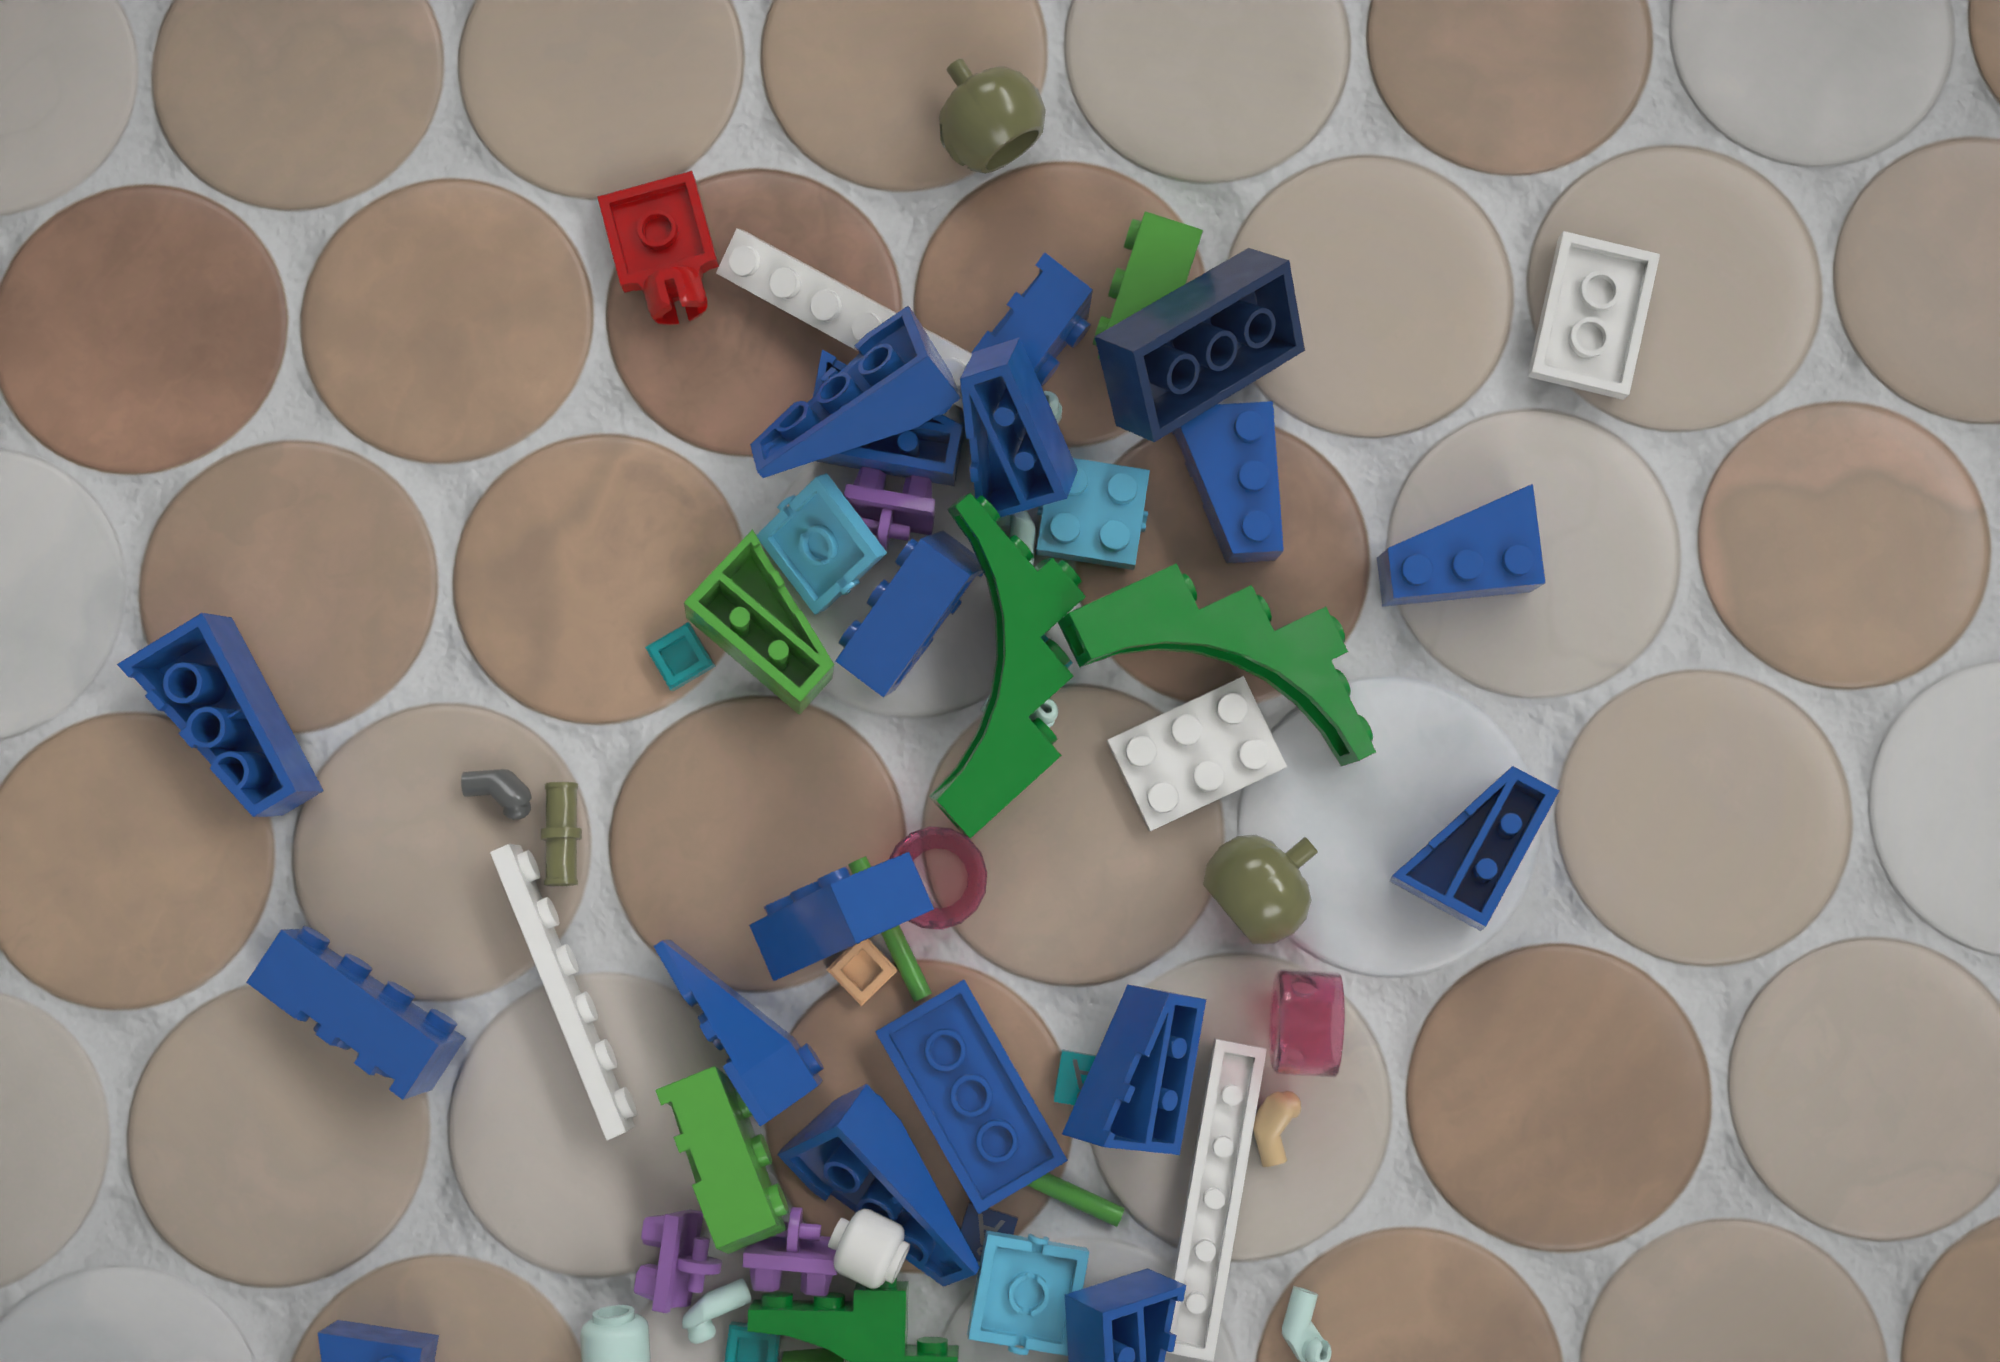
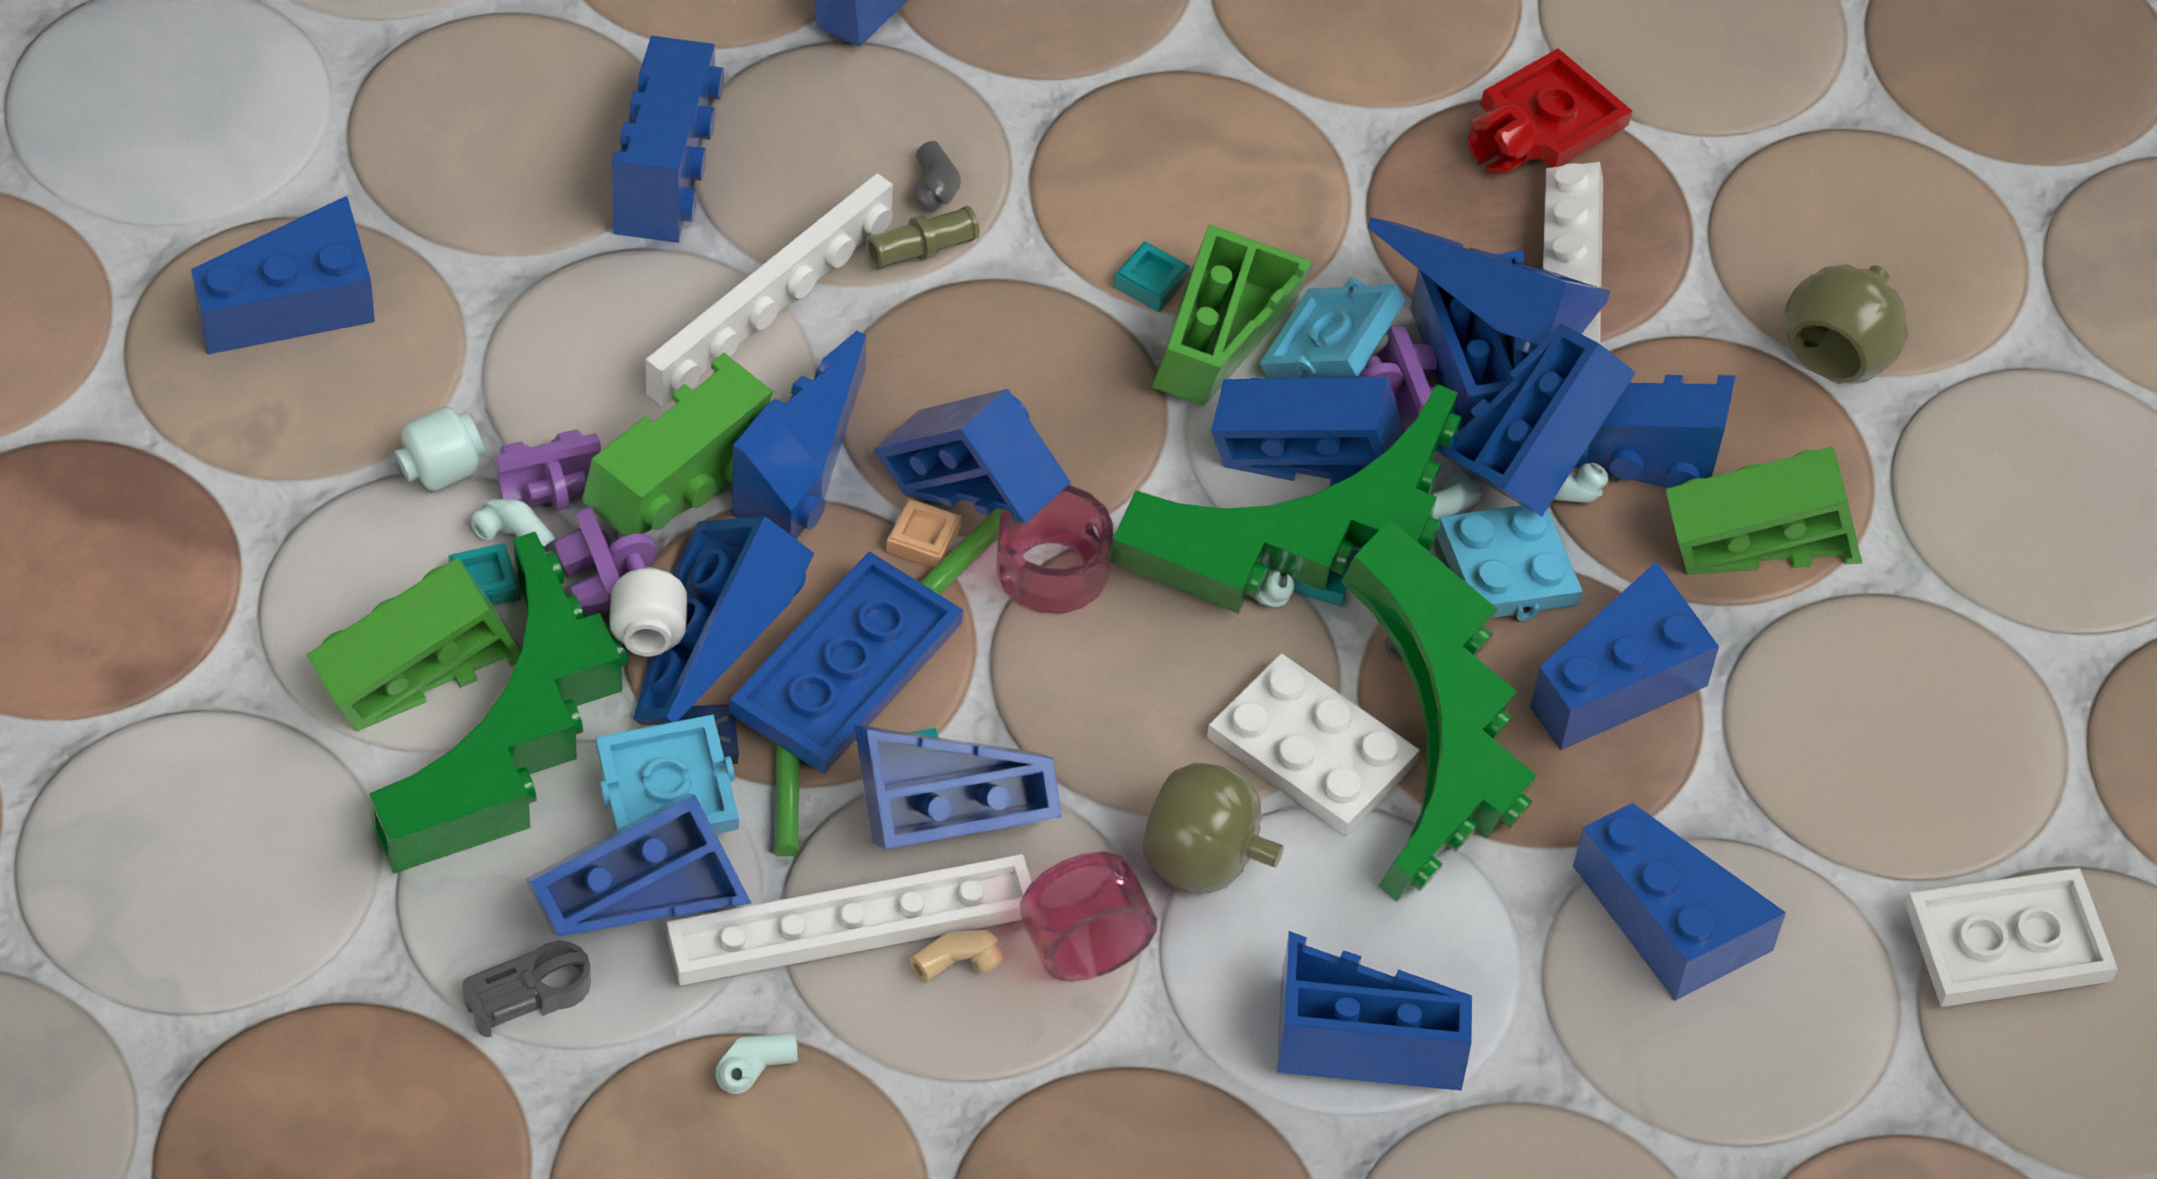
camera: 60 degrees right, 30 degrees down
(1200, 343) = (1734, 548): dark blue brick -> none

